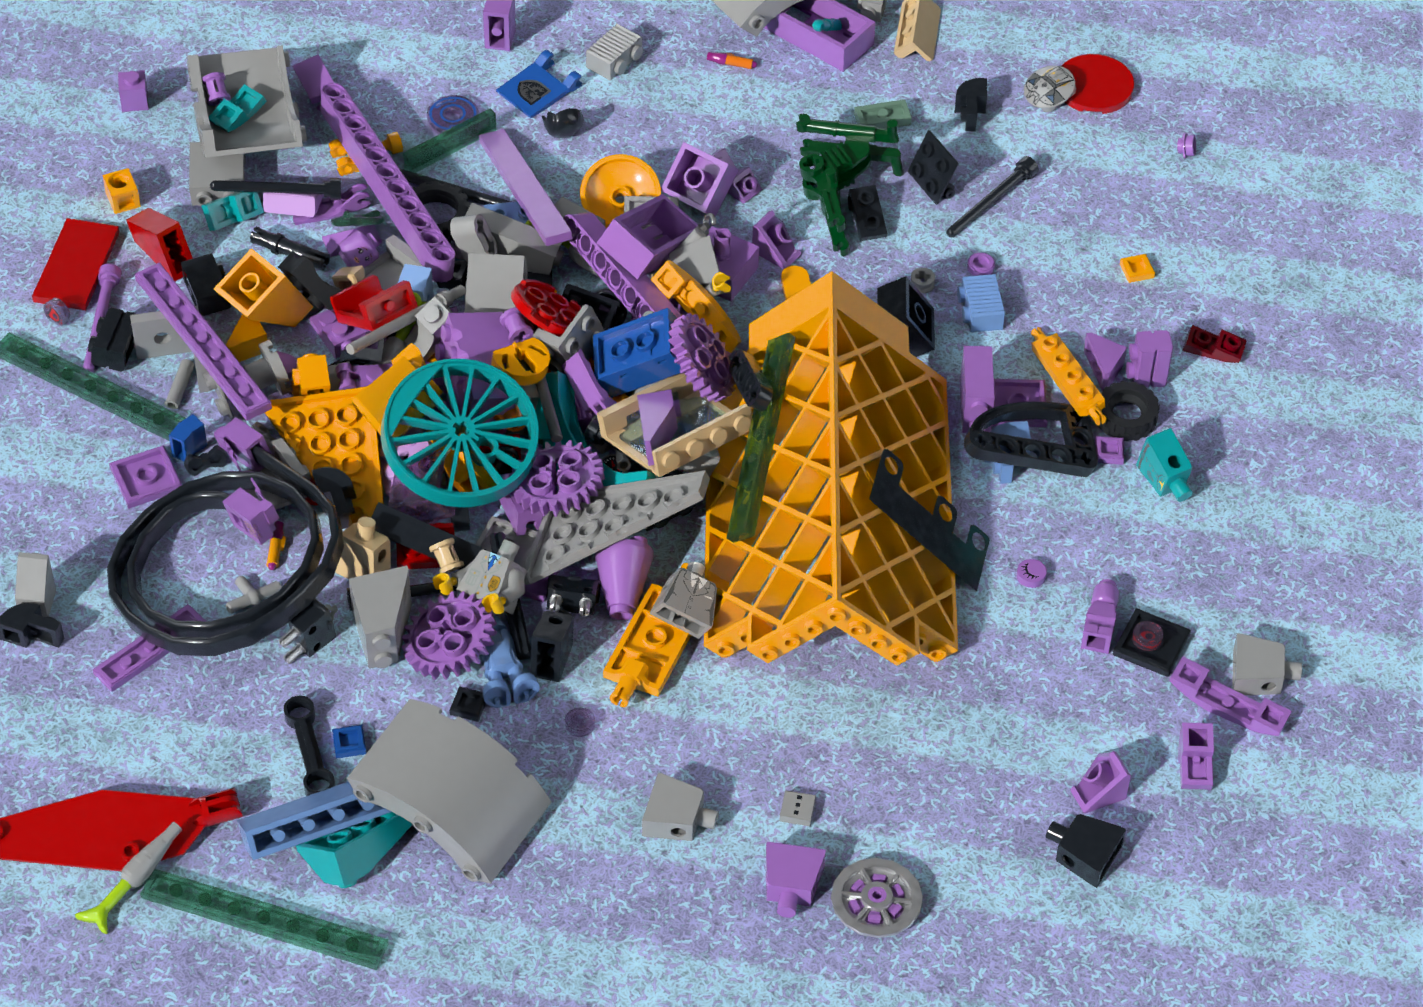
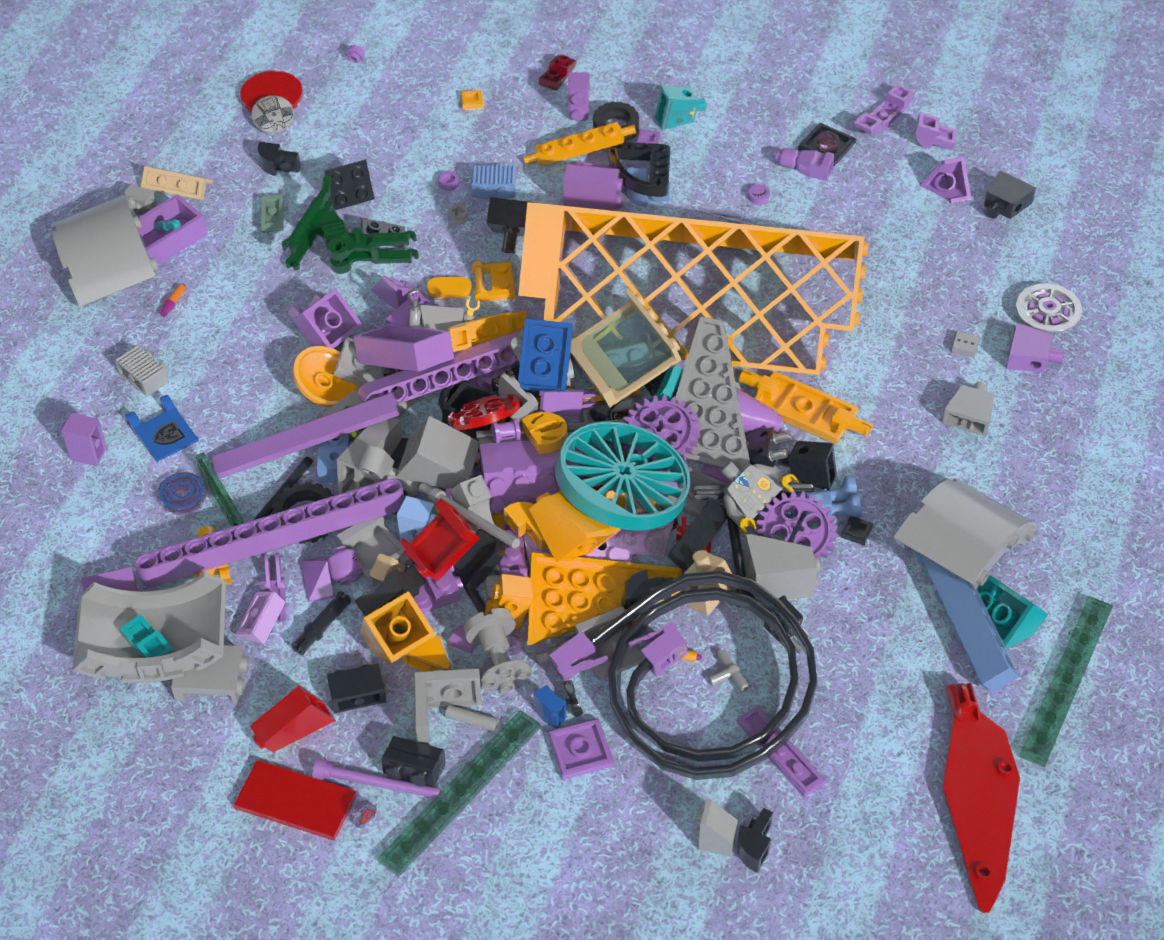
camera: 80 degrees left, 0 degrees up
(121, 190) = (208, 745): light orange brick -> none
(132, 875) = (1032, 765): light grey piece -> none
(133, 91) = (74, 738): medium lavender brick -> none
(203, 341) = (462, 667): medium lavender tile -> none
(212, 80) = (121, 648): medium lavender bush -> none
(232, 209) = (260, 662): teal slope -> none
(307, 742) = (899, 638): black piece -> none
(329, 188) = (264, 578): black piece -> none
(349, 741) = (891, 612): blue tile -> none
(351, 219) = (297, 566): piece -> none
(446, 556) = (722, 519): tan bush -> none
(564, 123) = (223, 412): black hair -> none
(580, 722) = (879, 462): clear purple tile -> none
(658, 419) = (621, 356): medium lavender slope -> none
(687, 601) = (785, 370): light grey torso -> none
(701, 357) = (566, 314): medium lavender gear -> none
(751, 380) = (598, 288): black beam -> none
(760, 442) = (651, 289): clear green tile -> none
(1024, 169) = (356, 141): black piece -> none
(1104, 358) = (565, 124): medium lavender slope -> none
(1261, 666) = (857, 93): light grey torso -> none

